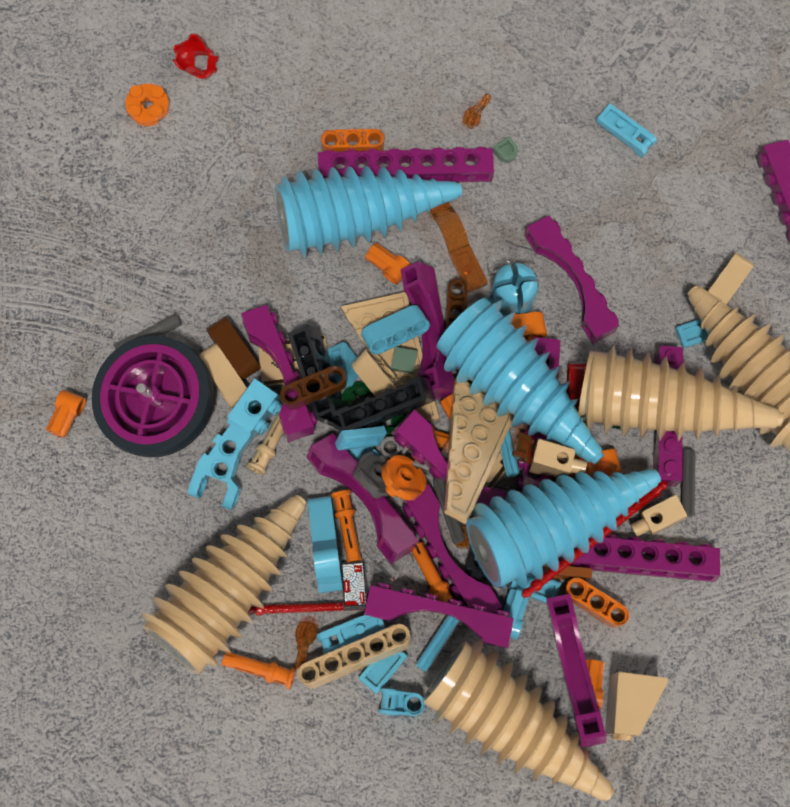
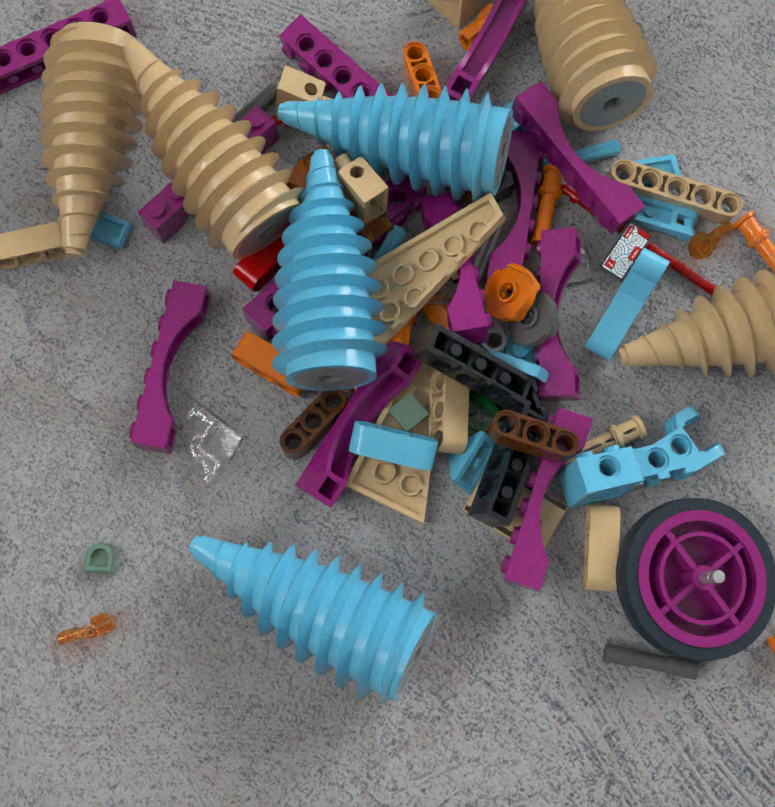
camera: 135 degrees left, 0 degrees up
(233, 348) = (570, 570): reddish brown beam -> none
(341, 514) = (585, 316): orange pin -> none
(360, 136) = (239, 698): orange beam -> none
(387, 262) = (333, 526): orange piece -> none
(399, 703) = (661, 129): medium azure piece -> none
(415, 157) = (135, 565): magenta brick -> none
(458, 246) = (249, 488): clear orange piece -> none
(515, 288) = (240, 391): medium azure cylinder -> none

